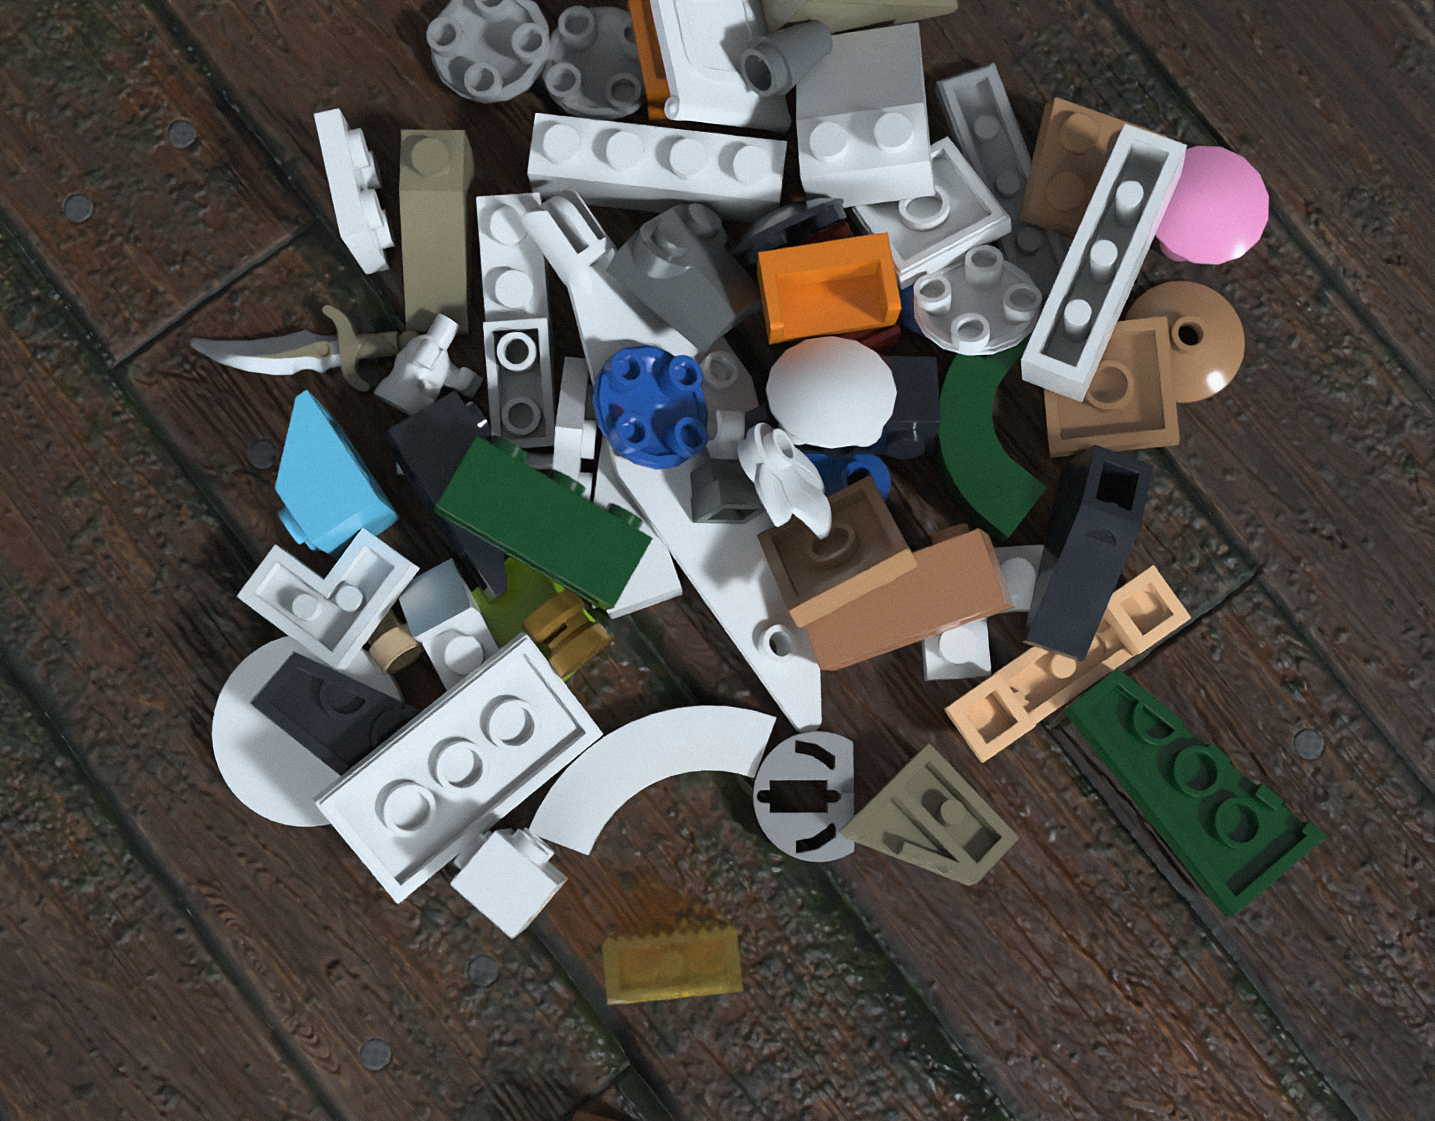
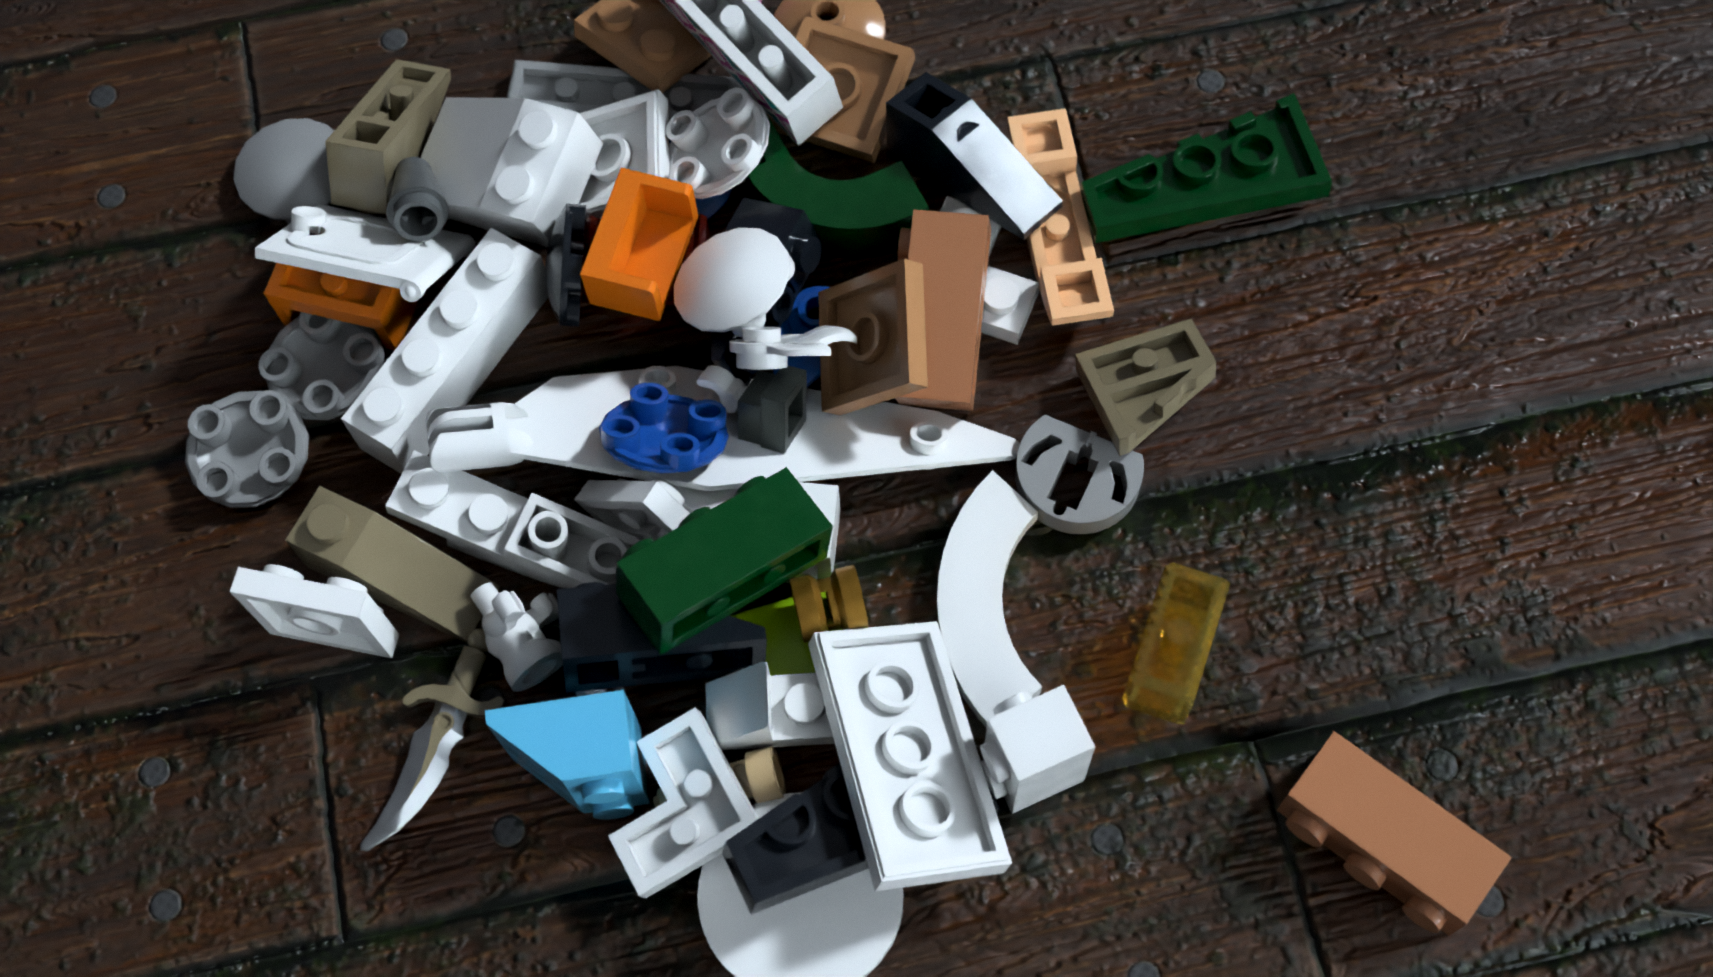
camera: 60 degrees left, 15 degrees down
(687, 274) = (561, 357): dark grey slope -> none

